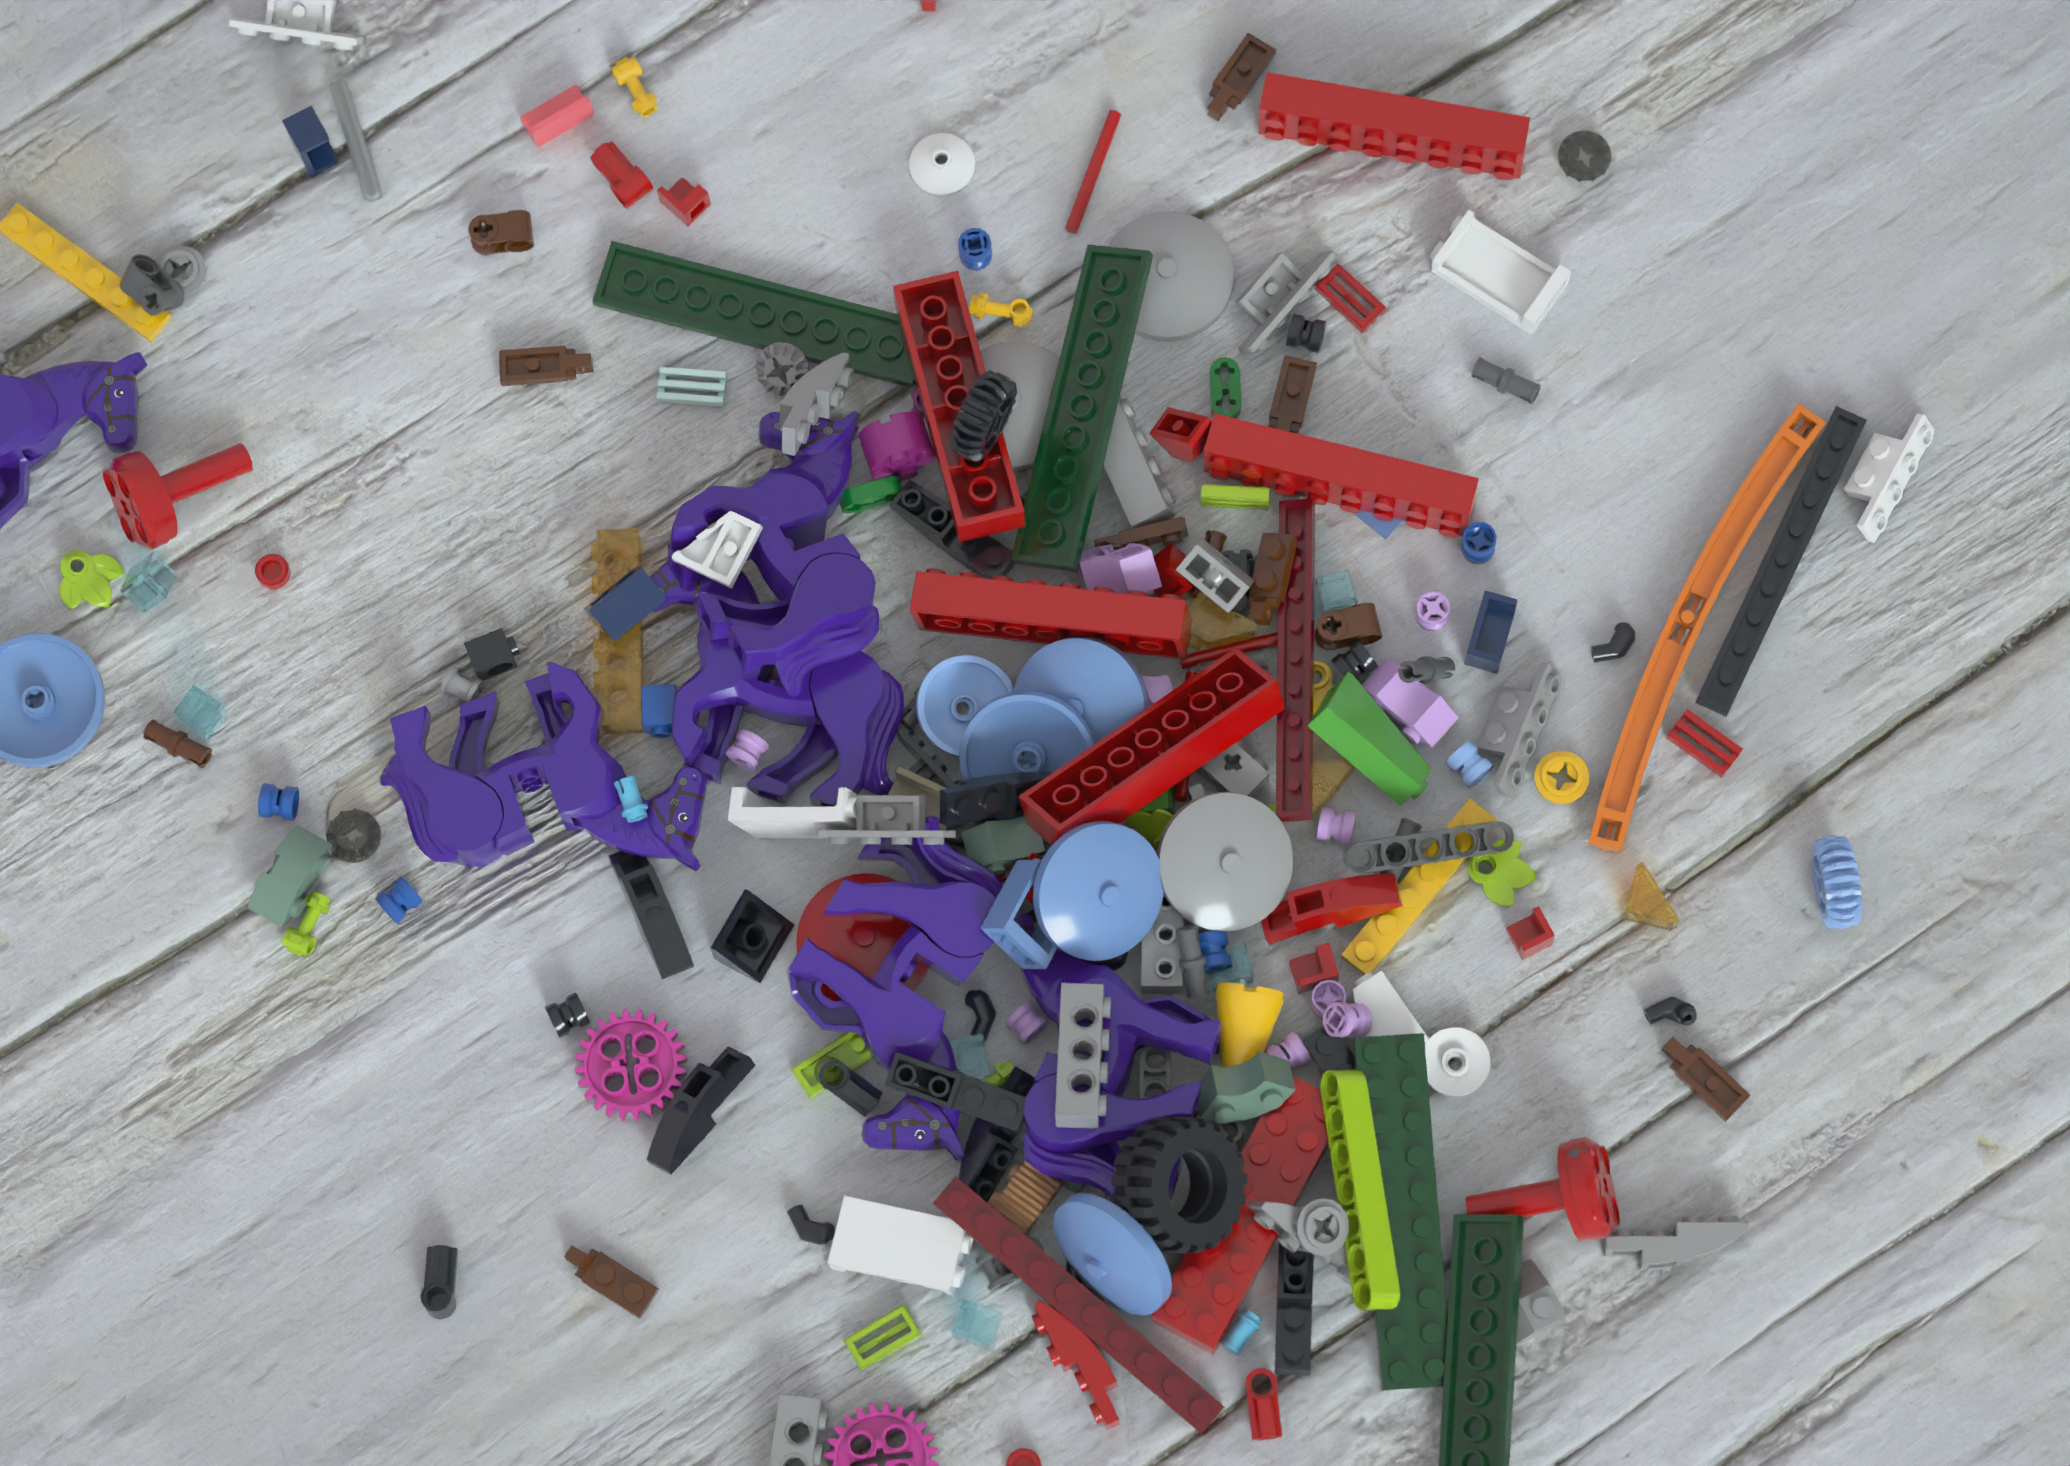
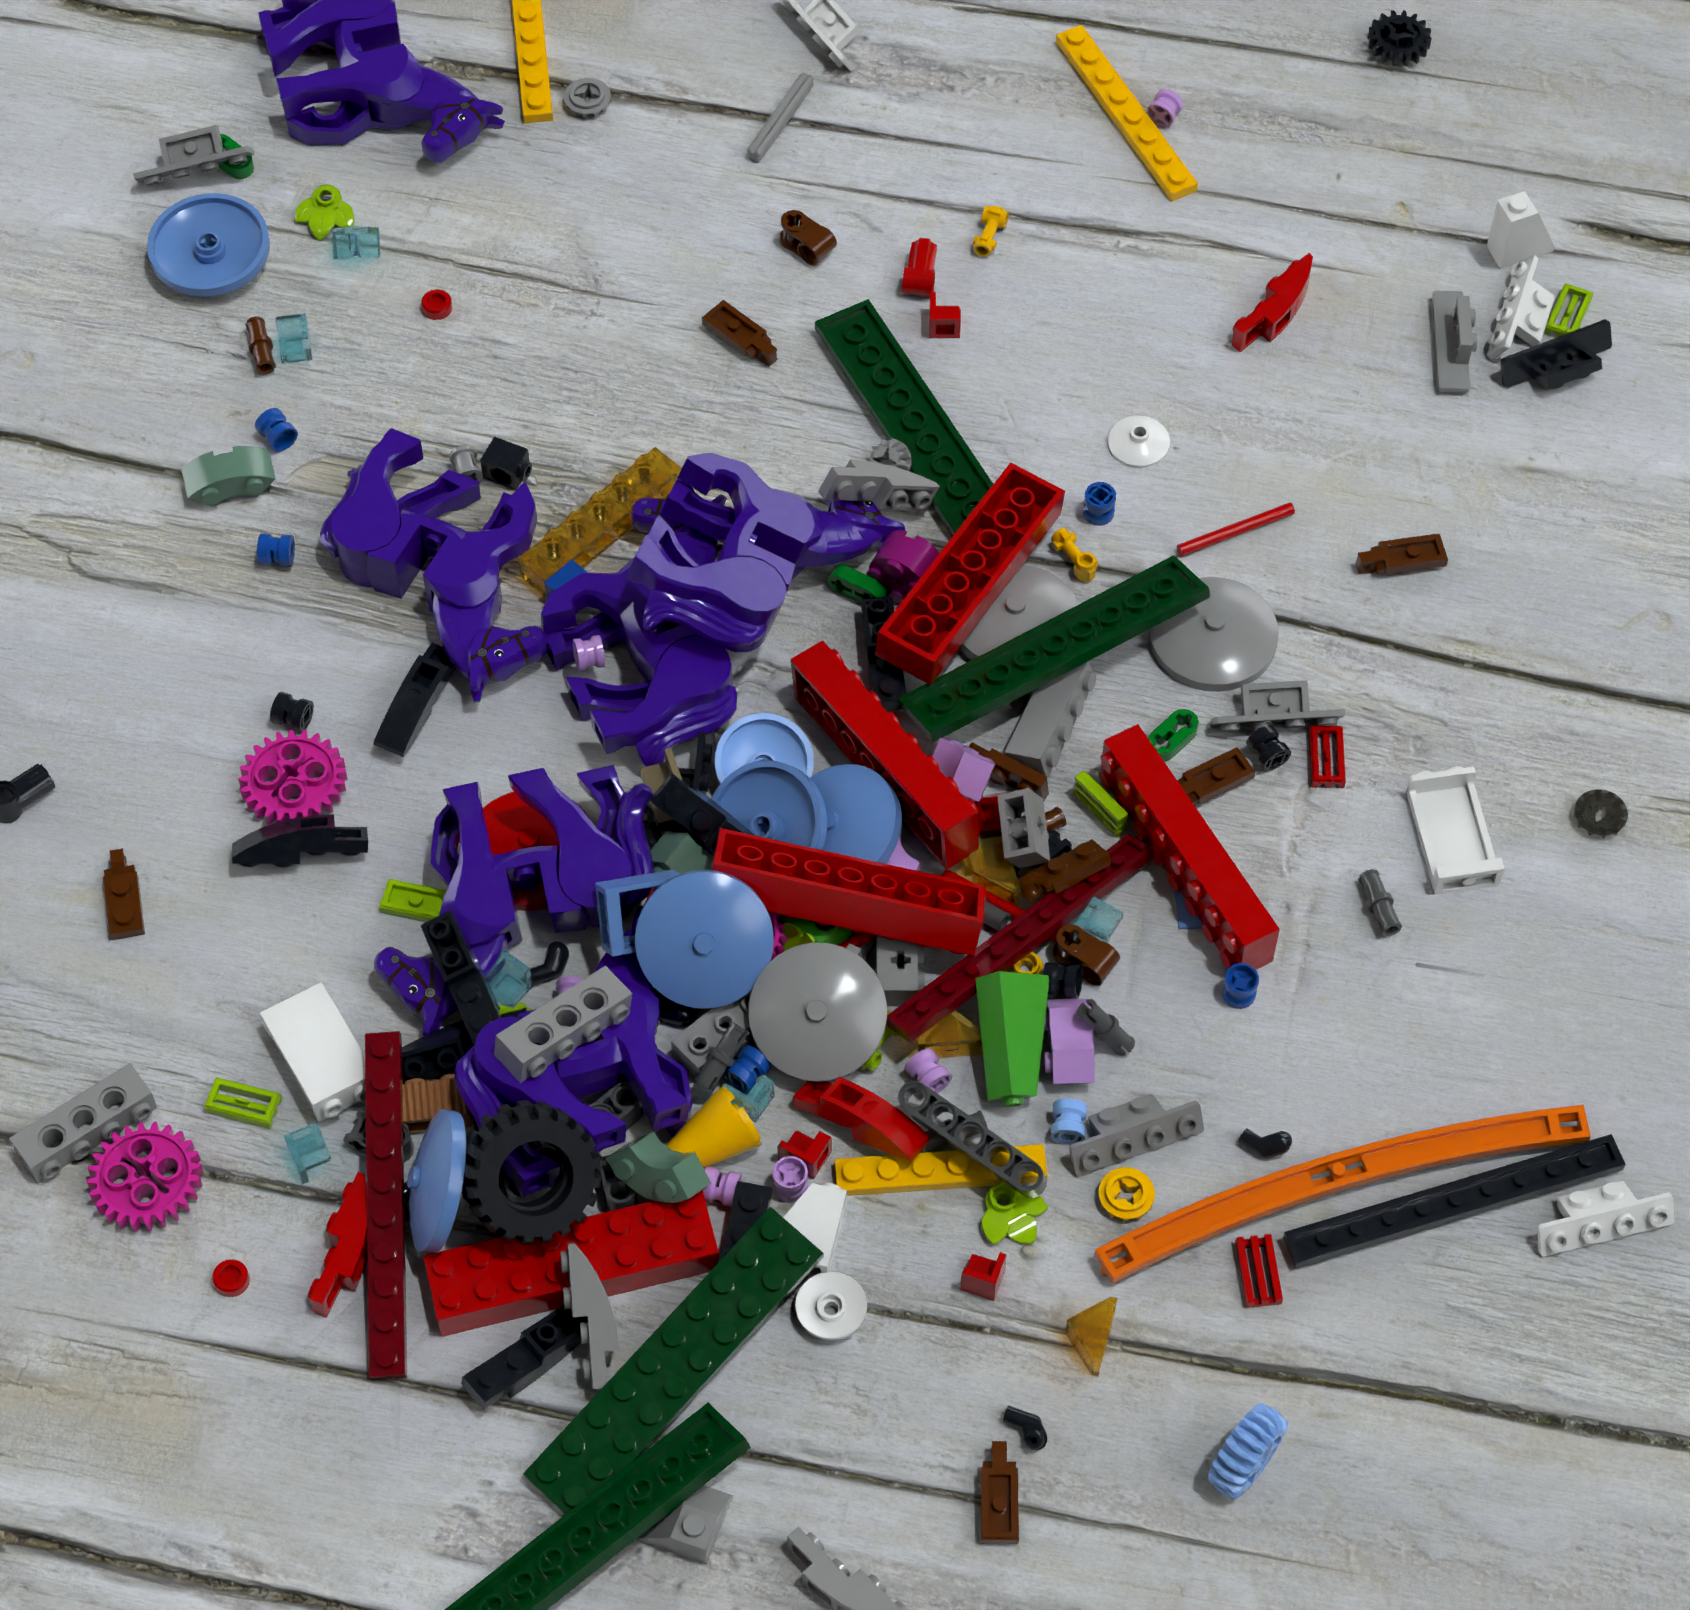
camera: 40 degrees right, 15 degrees down
(146, 498) = (406, 188): red piece -> none
(149, 284) = (558, 85): dark grey piece -> none
(299, 940) = (190, 519): lime bar -> none
(310, 141) = (748, 87): dark blue panel -> none
(364, 846) = (295, 502): clear smoke gear -> none
(557, 115) = (920, 206): coral panel -> none
(625, 603) = (616, 497): dark blue panel -> none
(631, 799) = (476, 608): medium azure pin -> none
(693, 374) = (828, 419): light aqua tile -> none
(721, 549) = (705, 502): white wing -> none
(751, 937) = (457, 764): black slope -> none
(765, 821) = (592, 741): white panel -> none
(809, 1230) = (278, 986): black arm -> none
(849, 1086) = (408, 921): black piece -> none
(889, 816) = (618, 760): light grey bracket -> none
(983, 416) = (969, 572): black gear -> none
(1182, 433) = (1104, 723): red slope -> none
(1241, 1331) = (476, 1337): medium azure pin -> none
(1263, 1409) = (429, 1401): red piece -> none
(1336, 1226) = (611, 1315): light grey gear -> none
(1347, 1020) = (781, 1194): lavender wheel -> none
(1360, 1189) = (655, 1312): lime beam -> none
(1393, 126) = (1478, 671): red brick -> none
(1435, 604) = (1160, 992): lavender wheel -> none
(1491, 632) = (1182, 1049): dark blue panel -> none
(1582, 1190) = (812, 1472): red piece -> none

